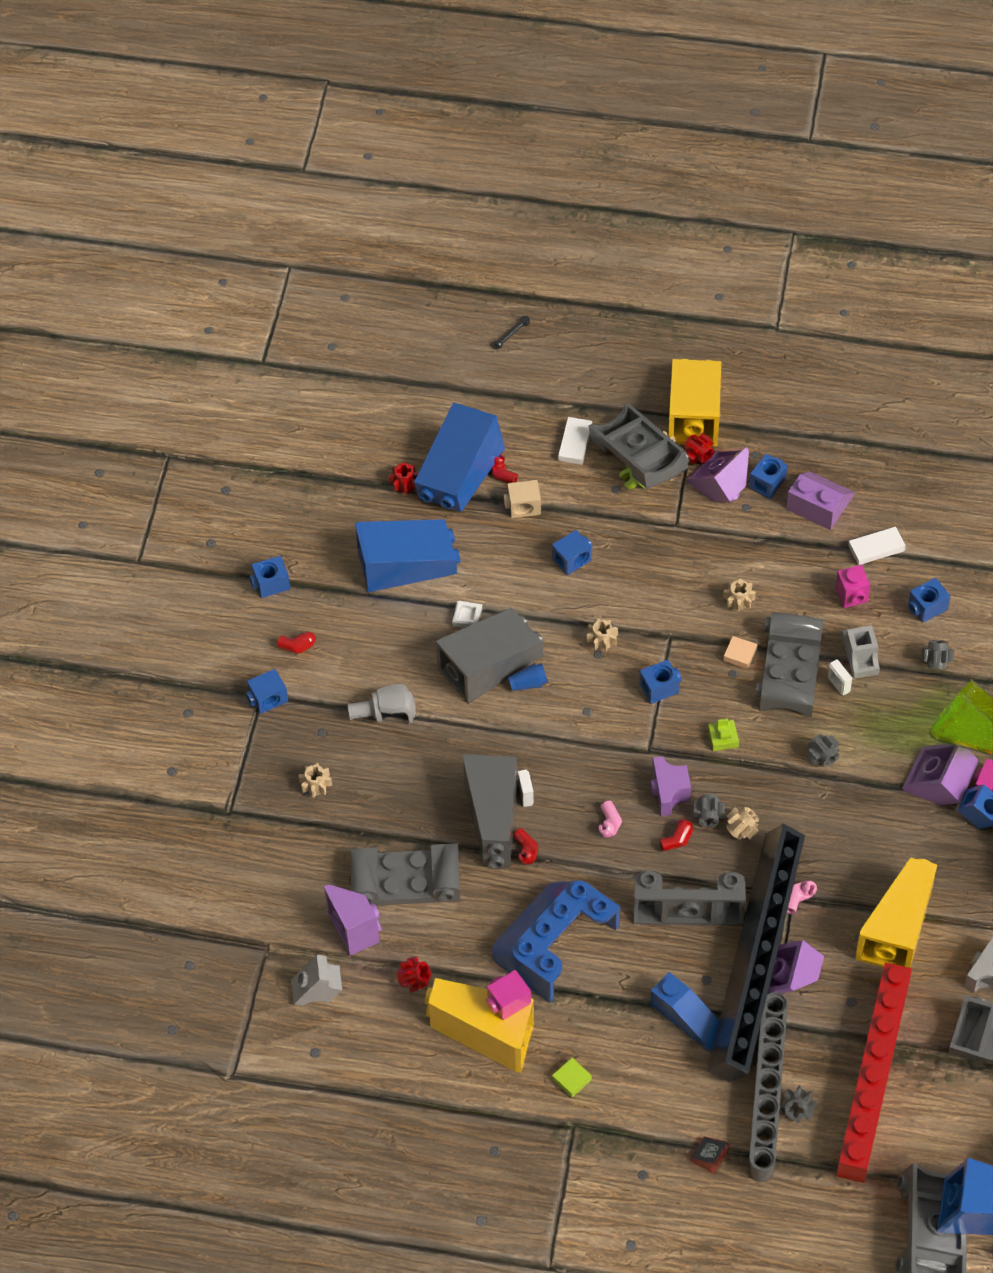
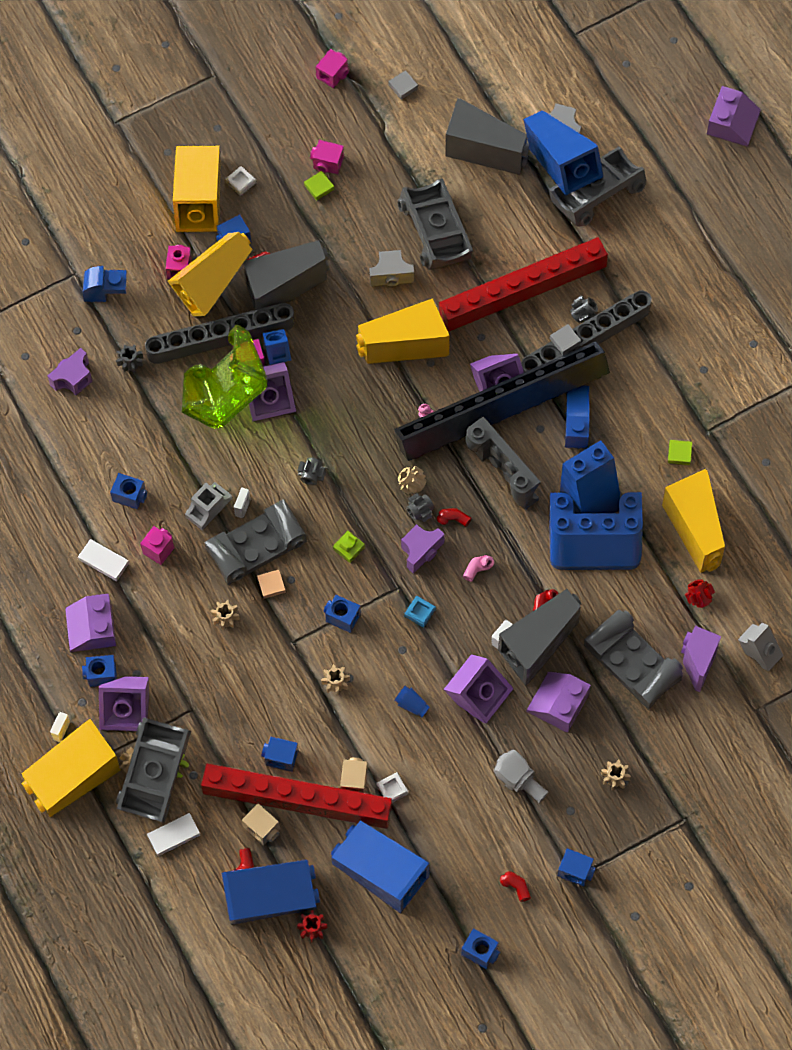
camera: 130 degrees left, 10 degrees up
(422, 788) = (559, 699): none -> medium lavender slope
(487, 653) = (416, 738): dark grey slope -> none
(493, 730) = (478, 688): none -> medium lavender slope
(501, 589) = (354, 775): none -> tan brick
(508, 995) = (681, 495): dark pink brick -> none
(522, 537) = (296, 796): none -> red brick
(524, 321) = (83, 965): black hinge -> none
(595, 946) = (592, 481): none -> blue slope
(609, 747) = (420, 611): none -> dark azure tile
(699, 448) = (116, 734): red gear -> none
(710, 1153) = (658, 338): slope -> none
(742, 418) = (60, 727): none -> white tile
(774, 1048) = (565, 339): none -> light grey tile
(937, 654) = (172, 454): dark grey gear -> none

